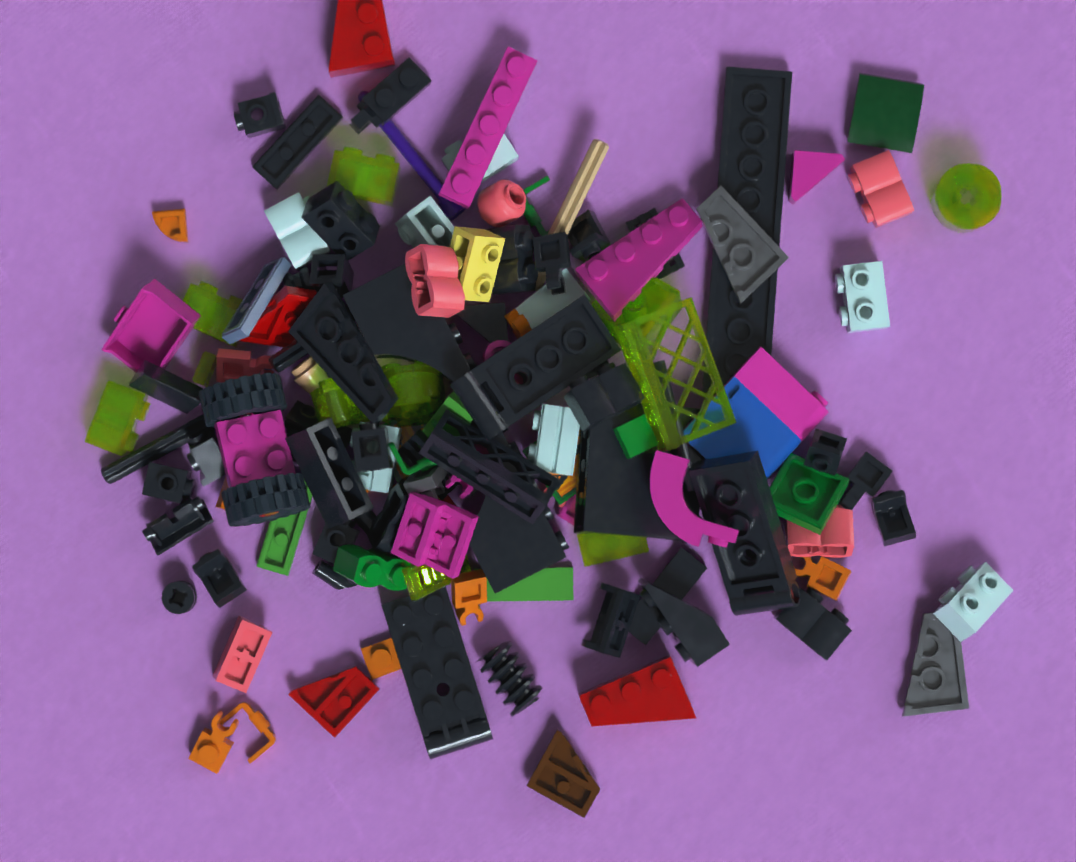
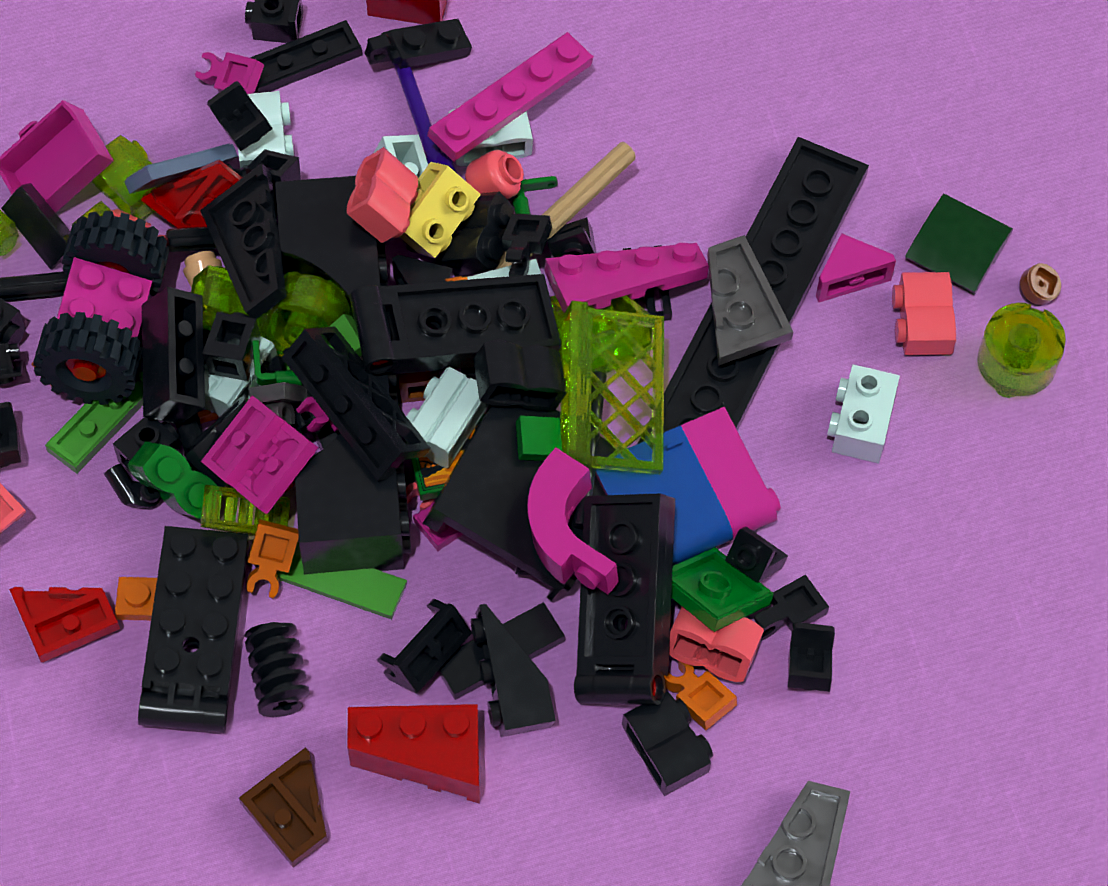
camera: 20 degrees right, 25 degrees down
(172, 224) = (132, 86): orange tile -> none
(205, 456) = (44, 303): brick -> none
(254, 186) = (231, 69): none -> dark pink plate
(284, 239) = (239, 116): none -> black bracket
(341, 220) = (311, 127): black brick -> none
(365, 176) = (355, 104): clear neon green brick -> none
(601, 548) = (461, 565): clear neon green brick -> none
(961, 125) = (1040, 284): none -> dark orange tile
(972, 601) = (872, 782): light aqua brick -> none

